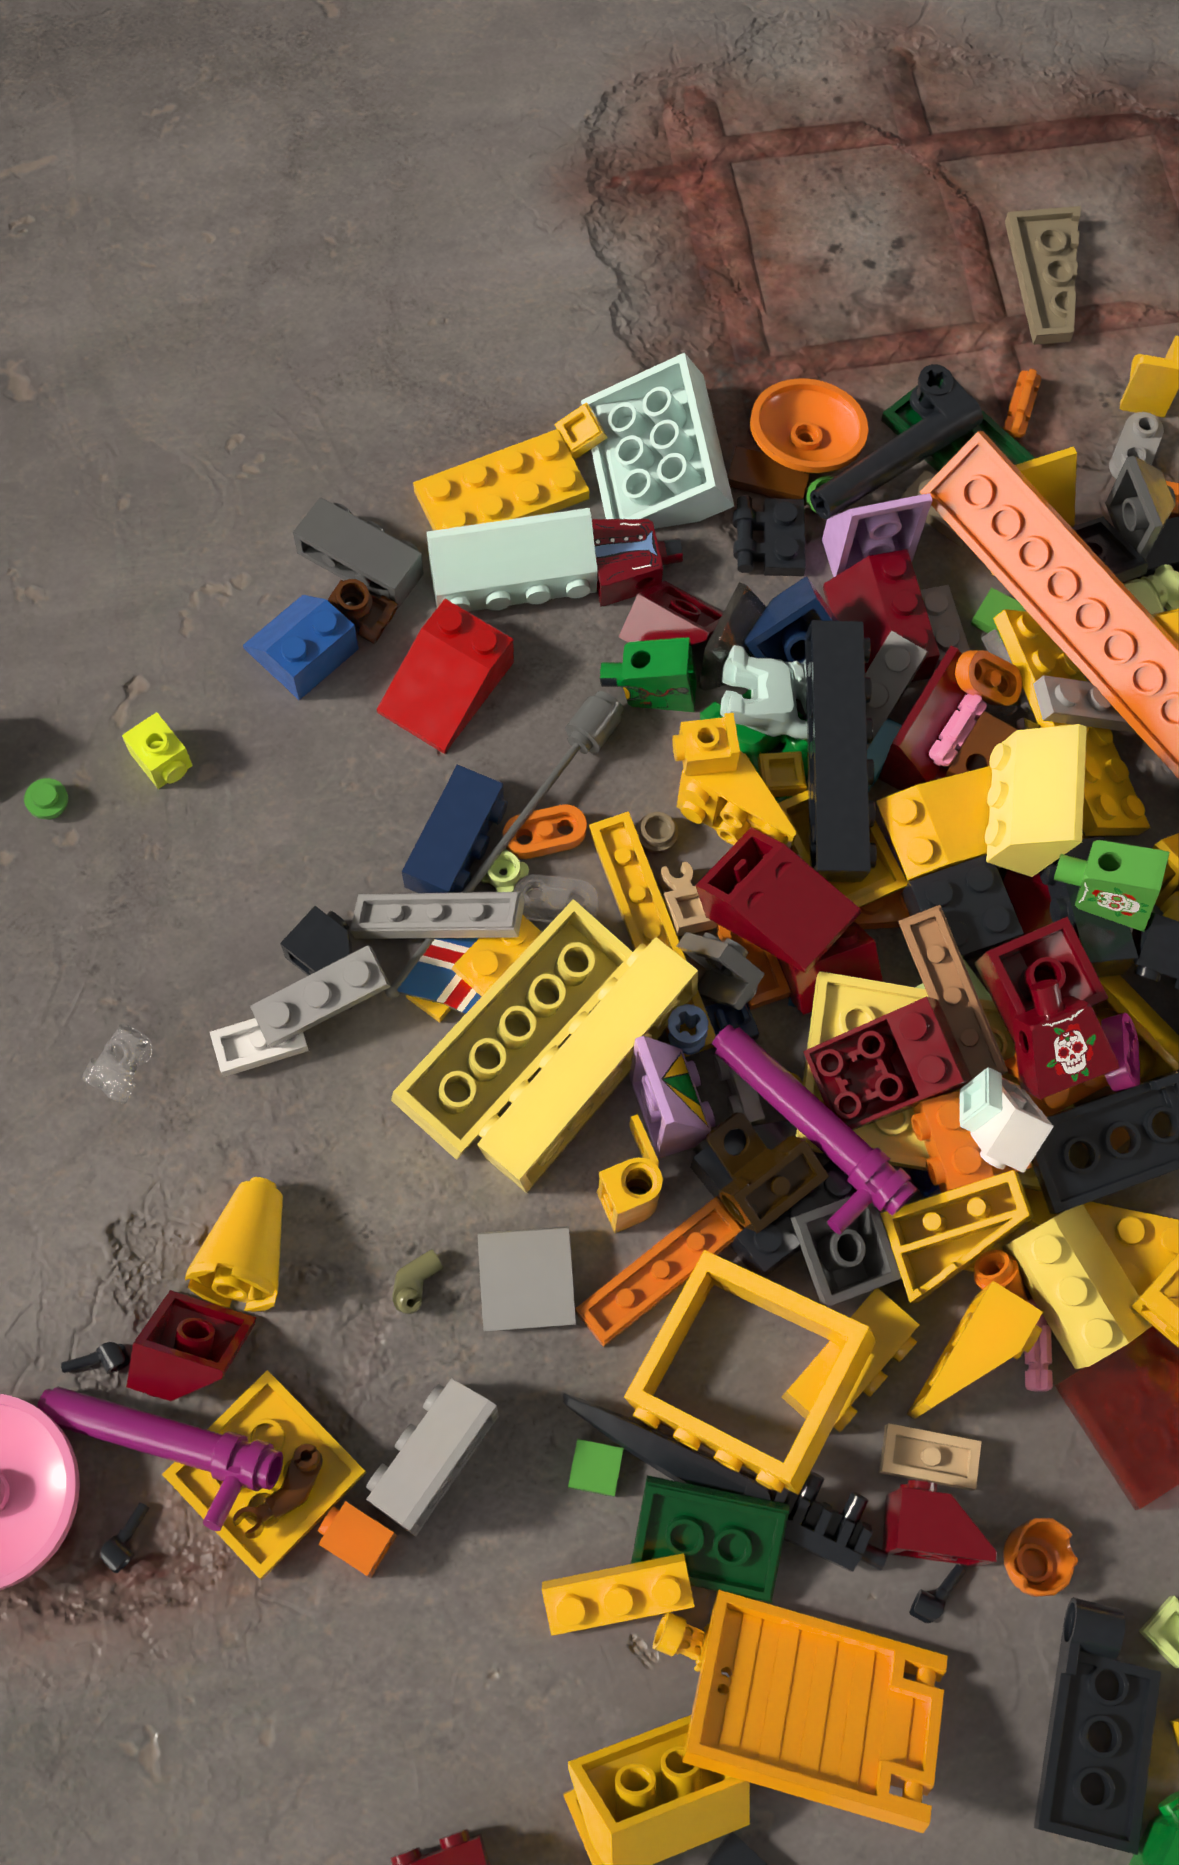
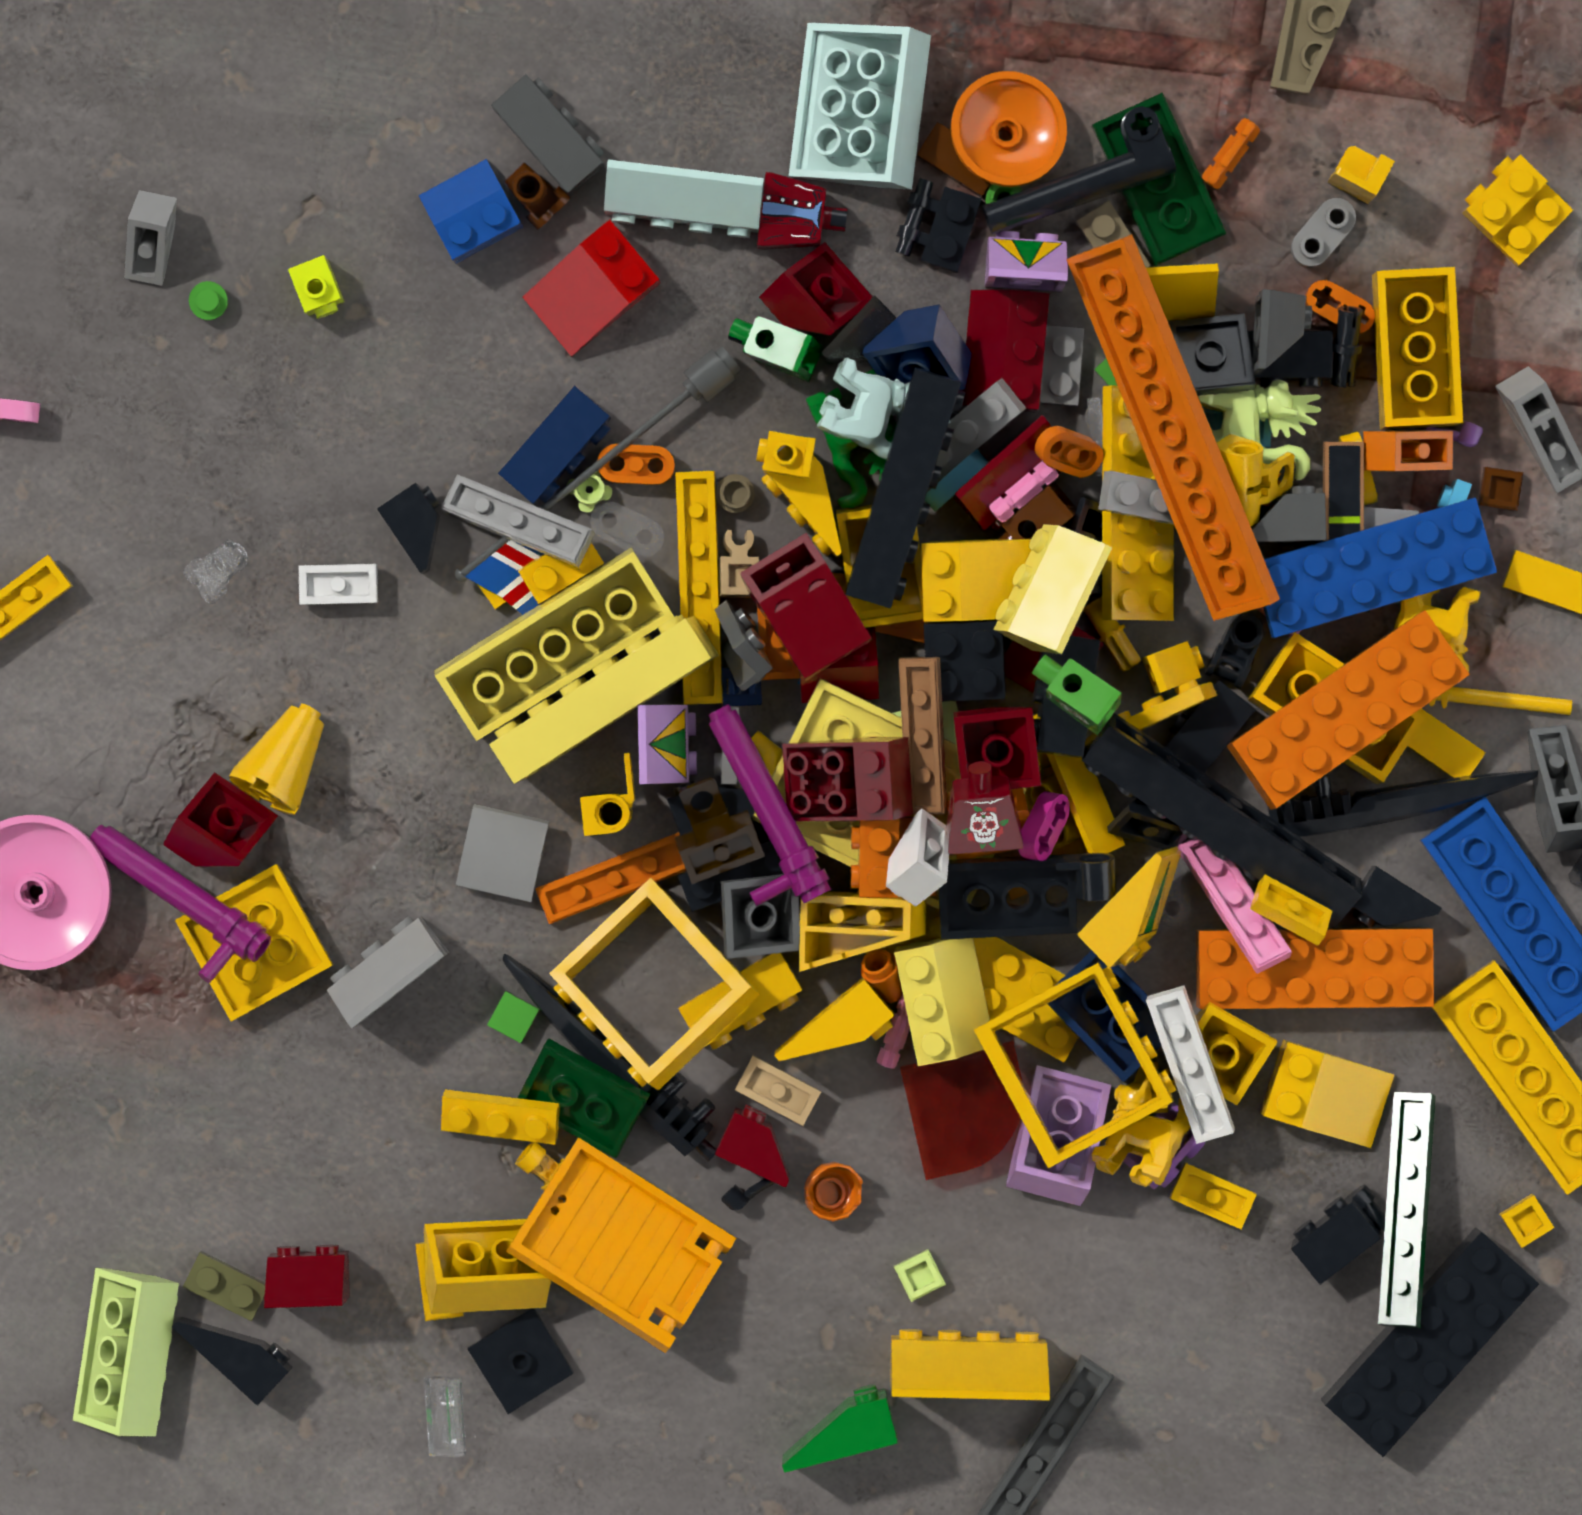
camera: 20 degrees right, 20 degrees up
(112, 1355) = (156, 812): black hand -> none
(115, 1551) = (125, 966): black hand -> none
(292, 1494) = (273, 966): reddish brown arm -> none
(320, 996) = (398, 568): light grey plate -> none
(355, 1538) = (311, 1013): orange brick -> none
(410, 1281) = (408, 826): olive arm -> none
(504, 485) = (701, 101): yellow plate -> none
(581, 430) = (795, 60): yellow tile -> none
(691, 1016) = (687, 683): medium blue bush -> none
(783, 773) = (857, 481): yellow tile -> none
(980, 1099) = (902, 837): light aqua tile -> none
(1089, 1645) = (843, 1267): black hinge -> none

